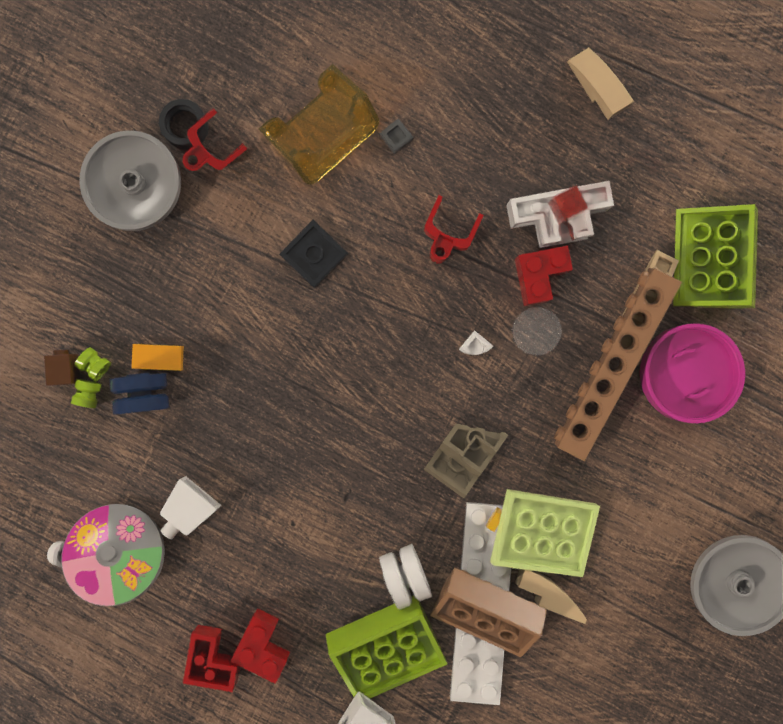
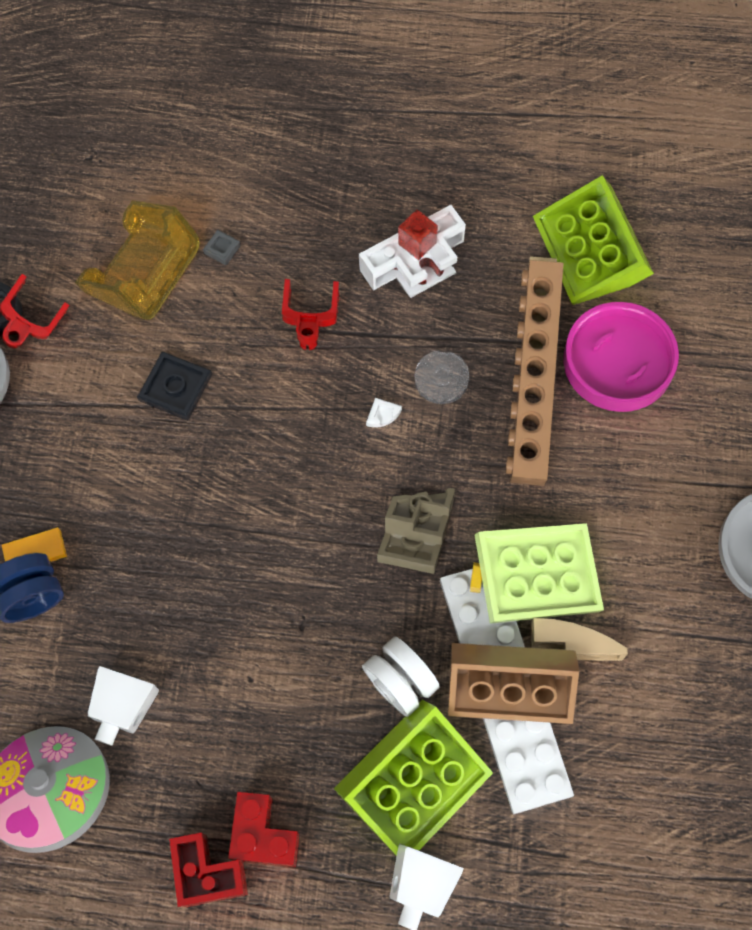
camera: 20 degrees left, 20 degrees down
(535, 270) = (417, 315): red brick -> none
(600, 83) = (408, 133): tan slope -> none

